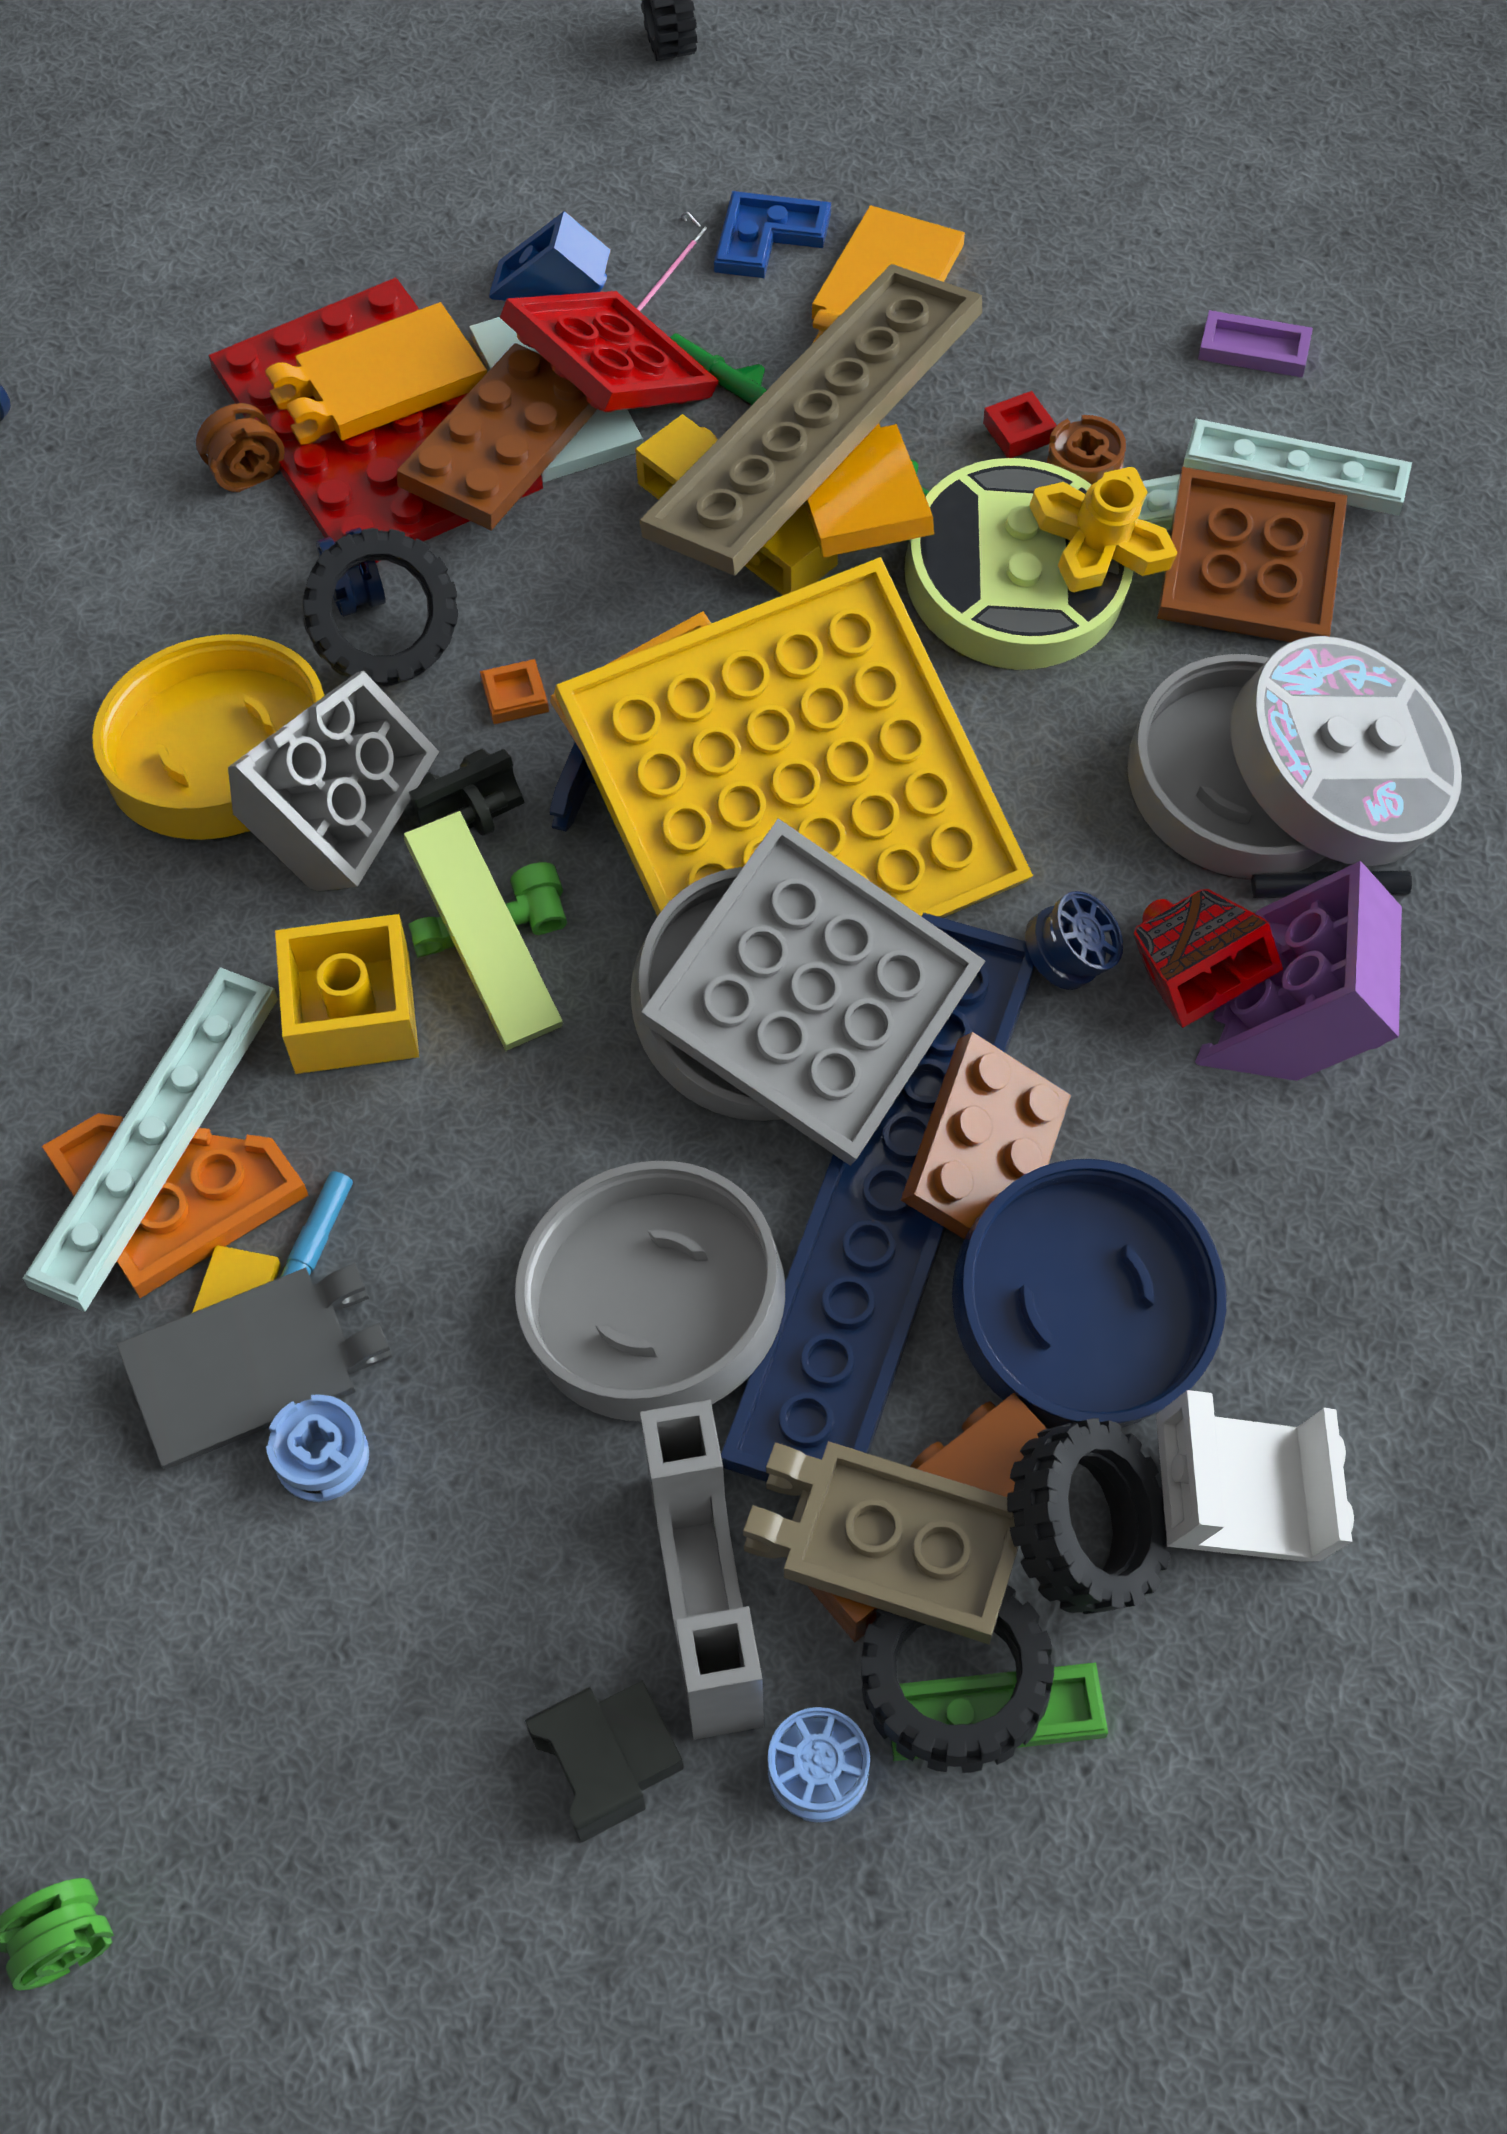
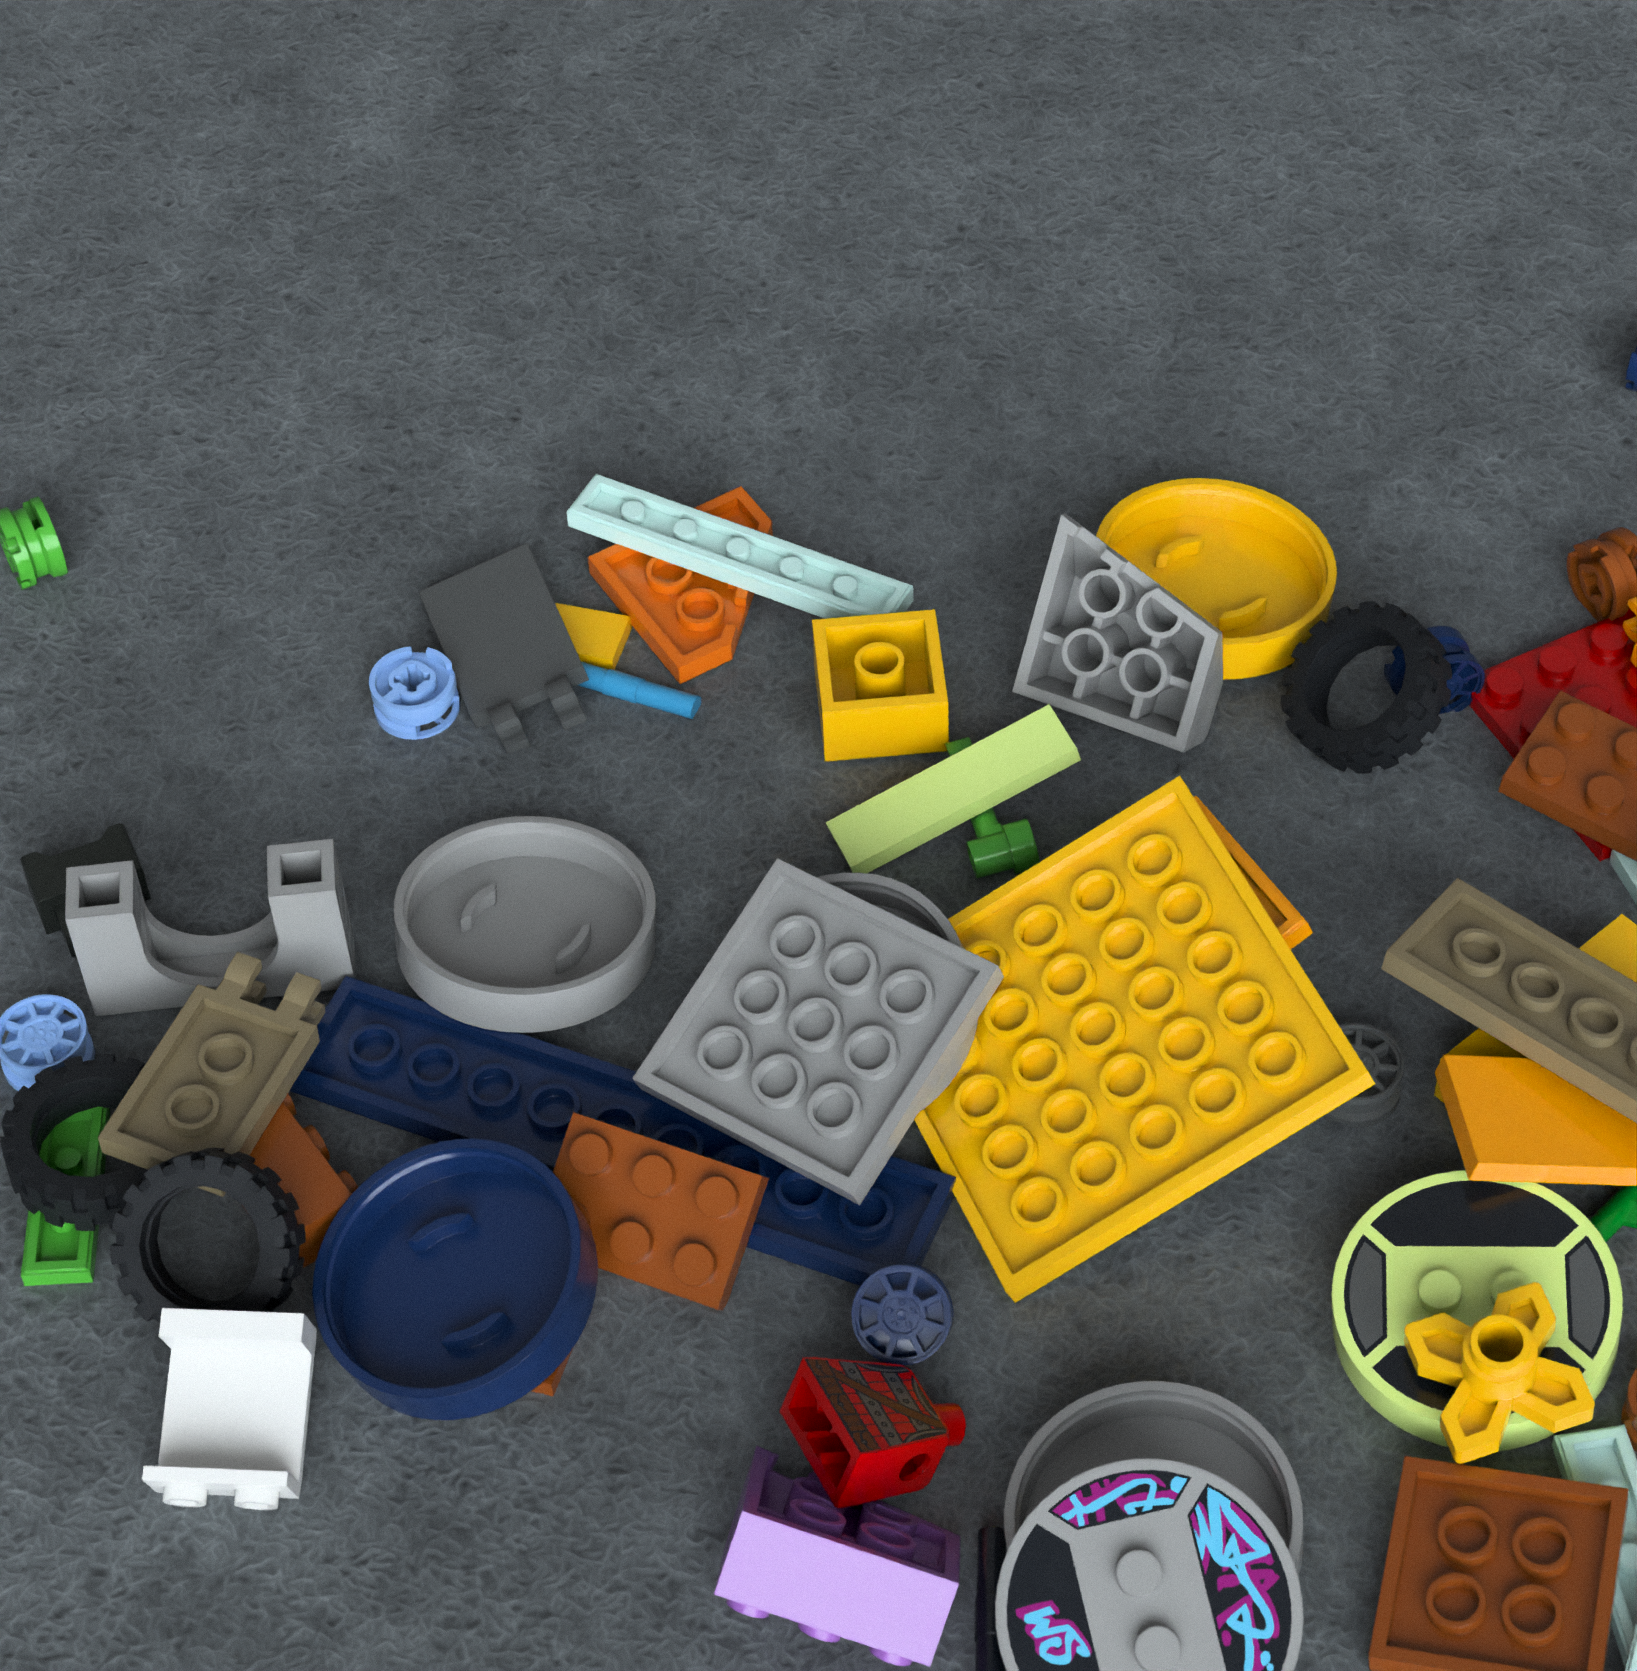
camera: 95 degrees right, 10 degrees down
(479, 790) = (1122, 770): pearl dark grey hips -> none
(514, 691) = (1288, 832): orange tile -> none

